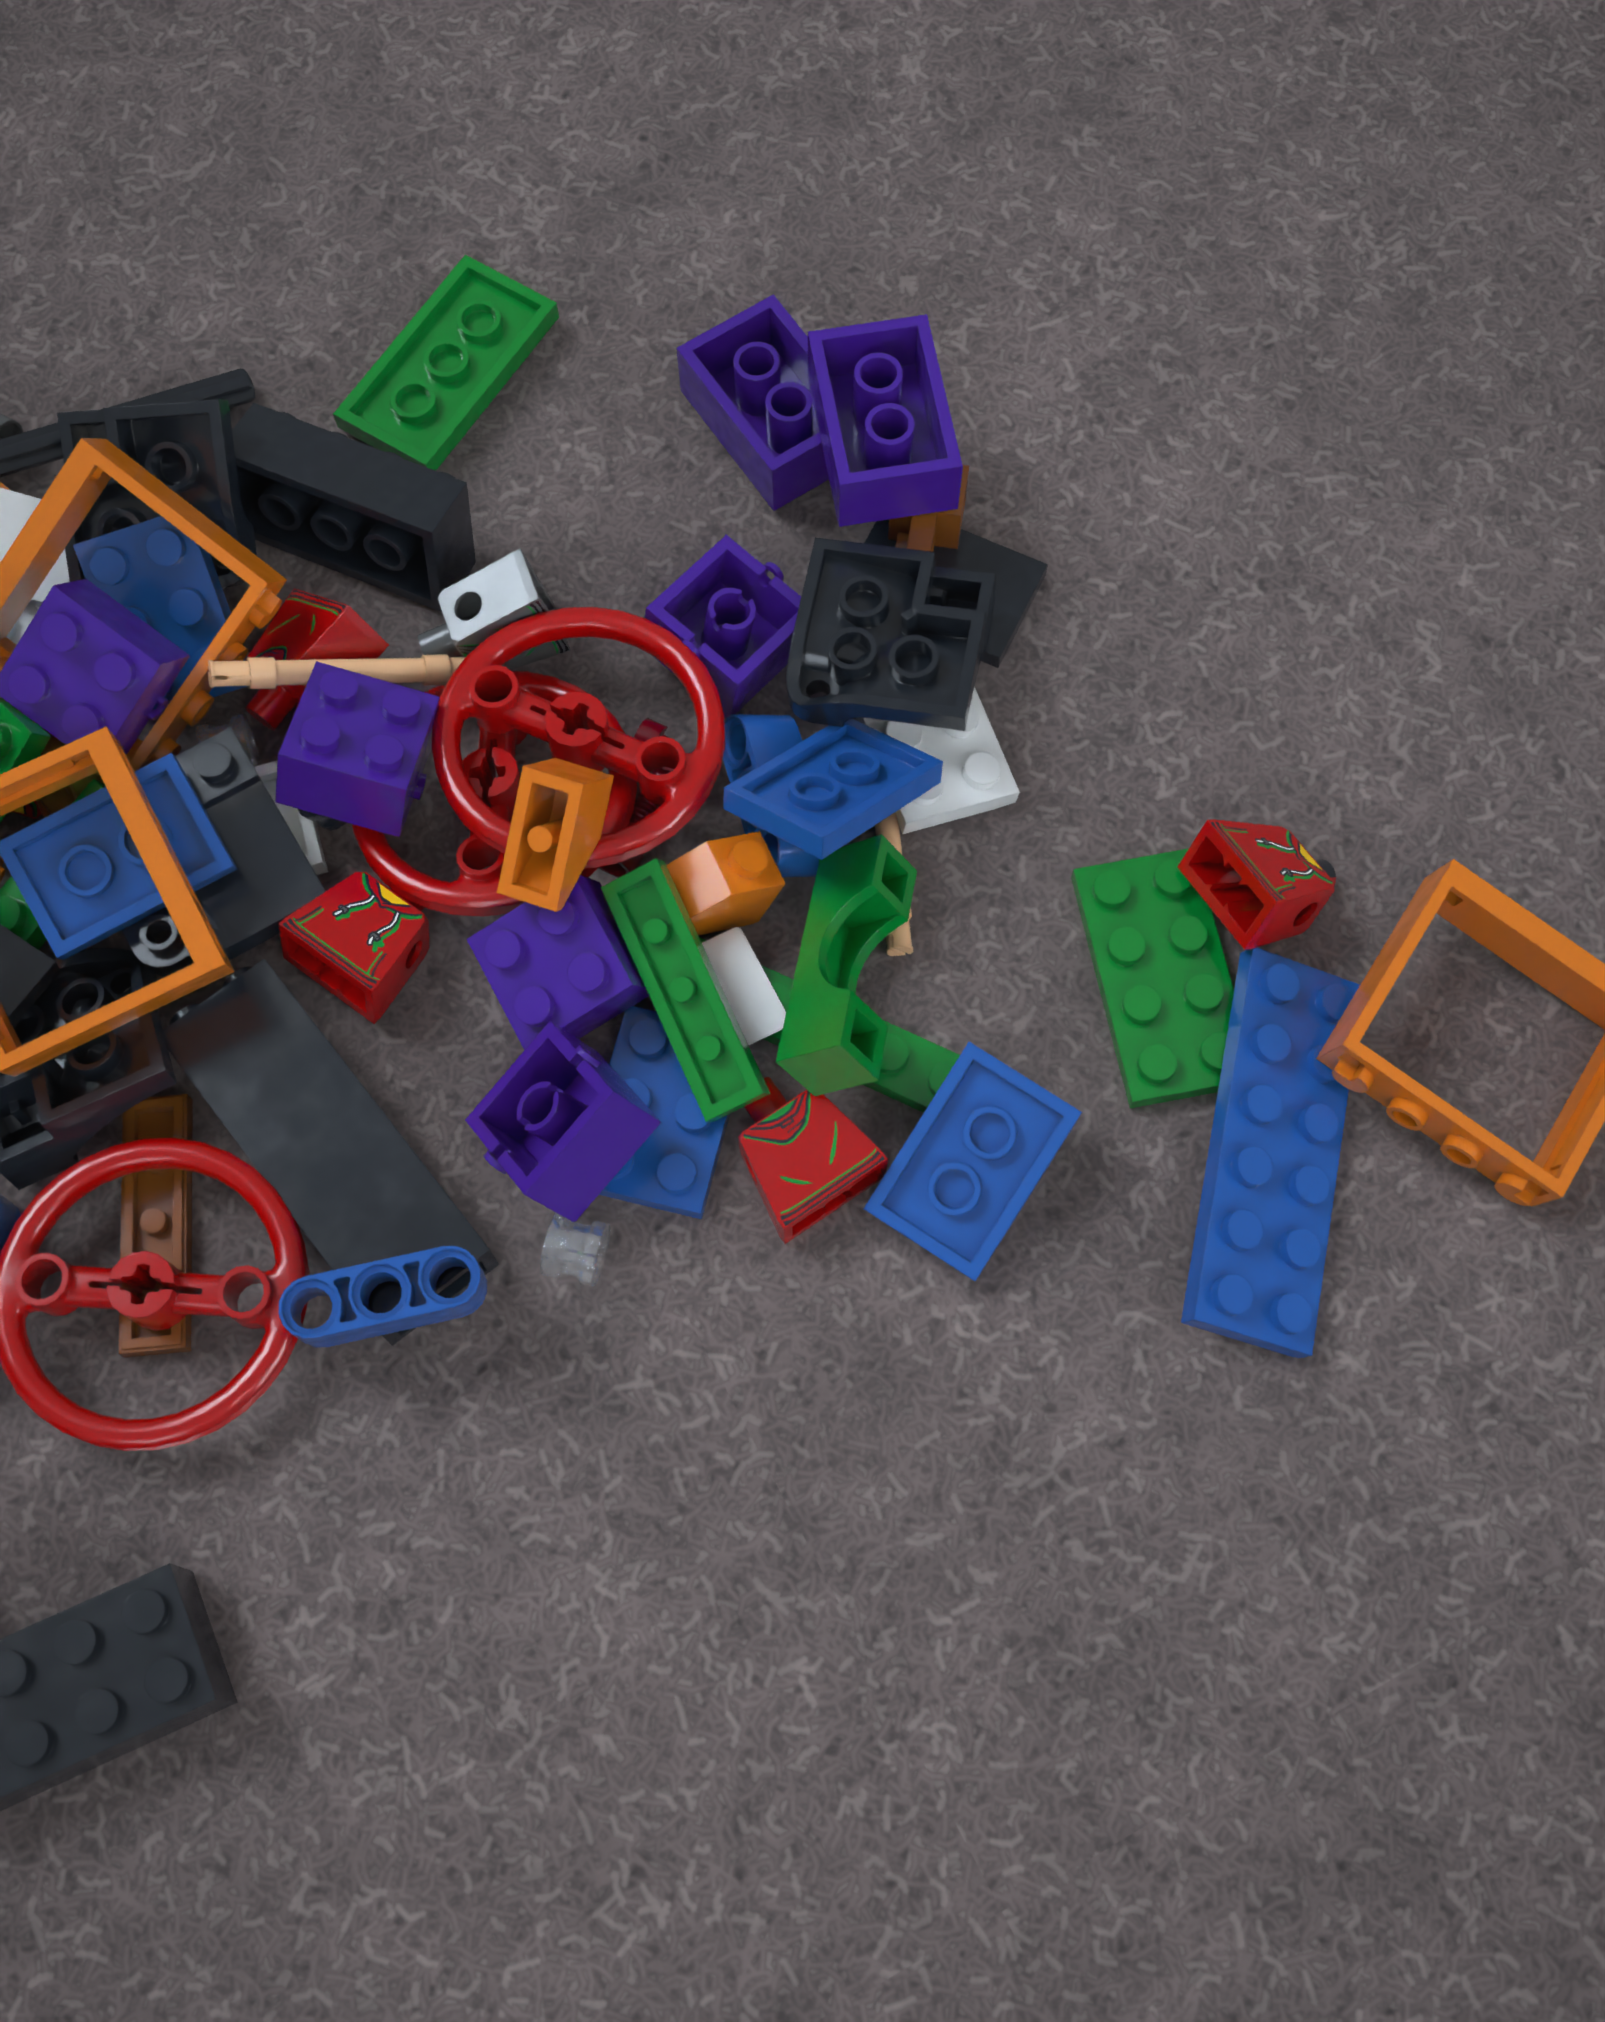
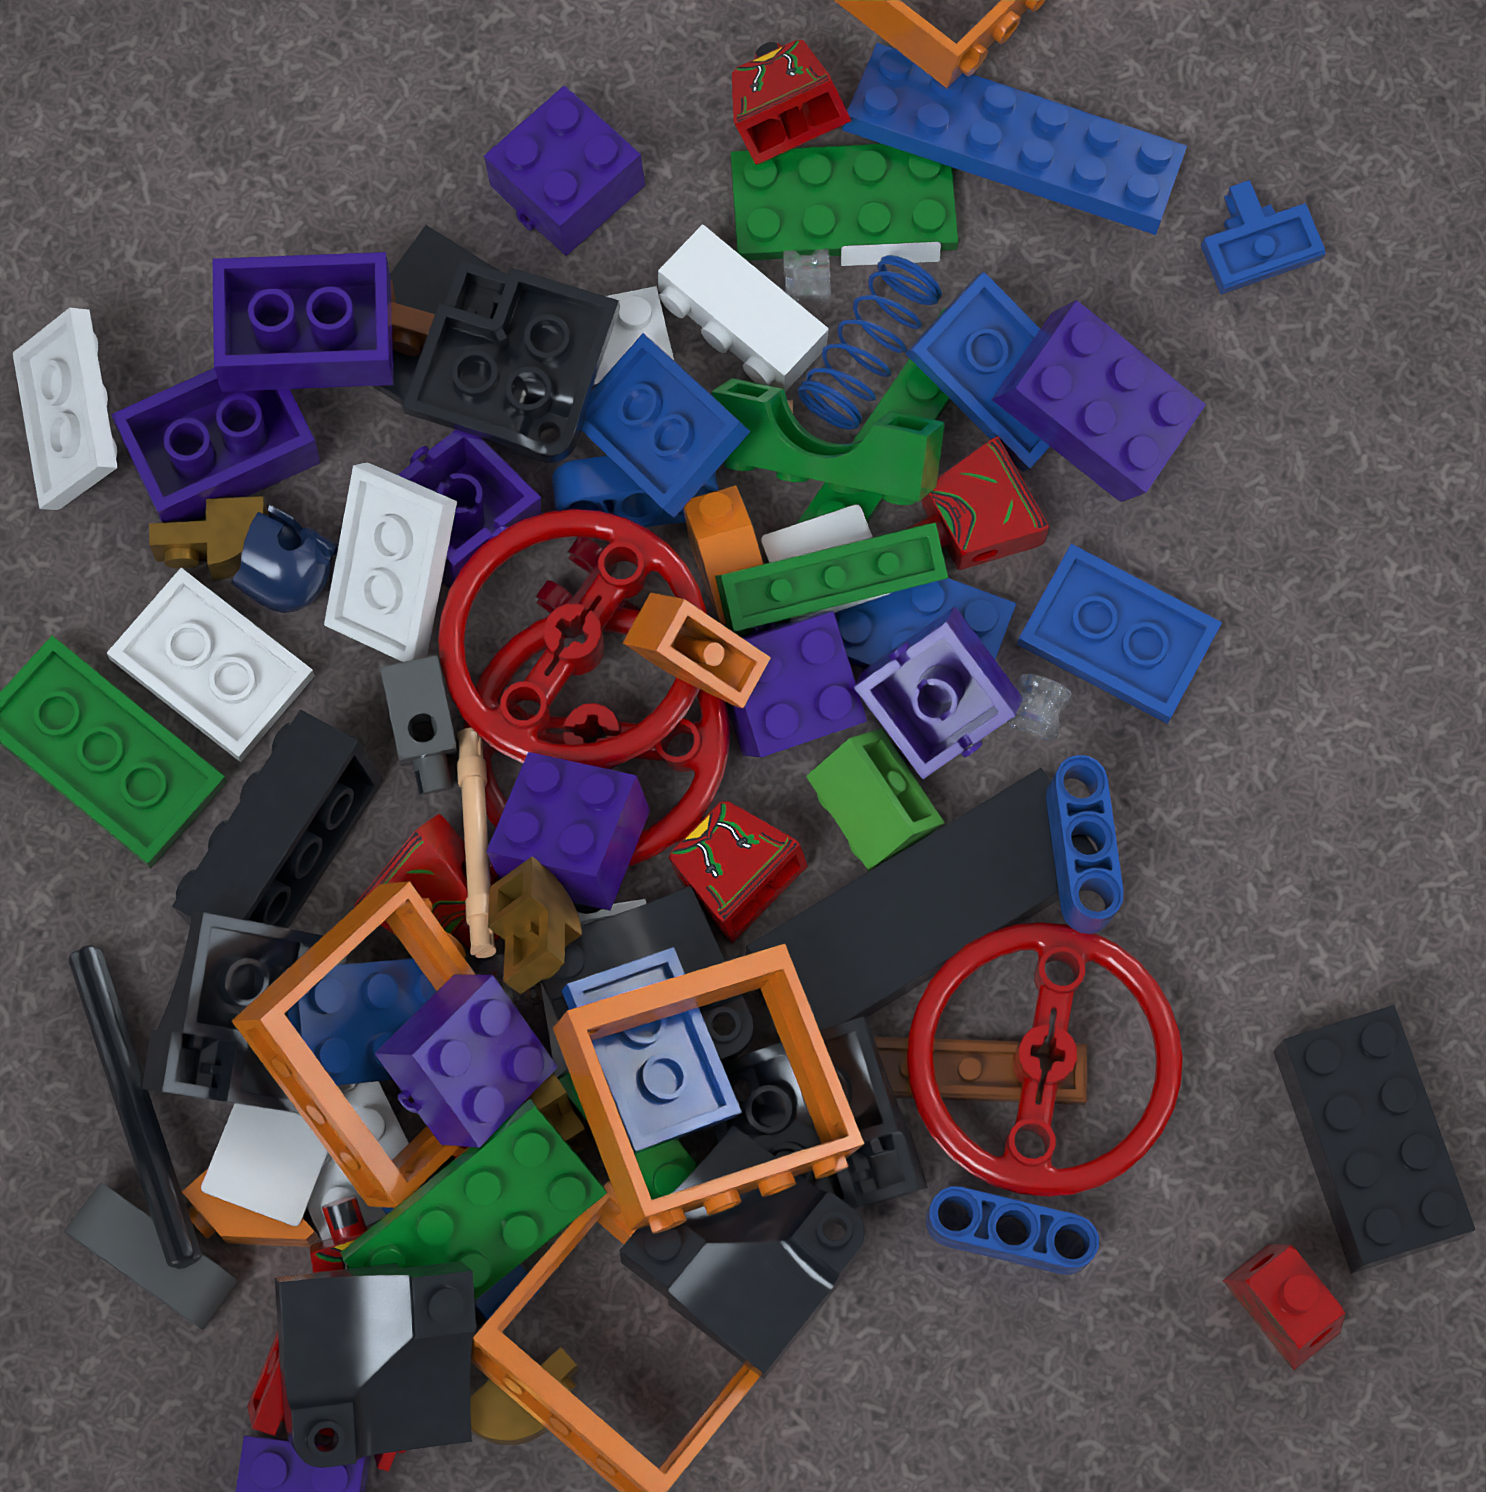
camera: 90 degrees left, 5 degrees up
(240, 714) = (534, 920): none -> pearl gold brick
(441, 1076) = (874, 798): none -> bright green brick
(545, 442) = (211, 664): none -> white plate
(639, 490) = (283, 562): none -> dark blue helmet
(650, 555) = (389, 563): none -> white plate
(674, 431) = (216, 539): none -> pearl gold brick
(676, 1335) = (1119, 633): none -> blue plate
(786, 273) = (65, 409): none -> white plate
(903, 992) = (827, 412): none -> blue piece
(945, 1270) = (1098, 401): none -> dark purple brick
(1002, 877) = (741, 310): none -> white brick
(1057, 940) = (807, 276): none -> clear wheel
(1106, 1032) = (873, 253): none -> white sticker
(1131, 678) = (564, 170): none -> dark purple brick
(1202, 1457) = (1259, 241): none -> blue hinge

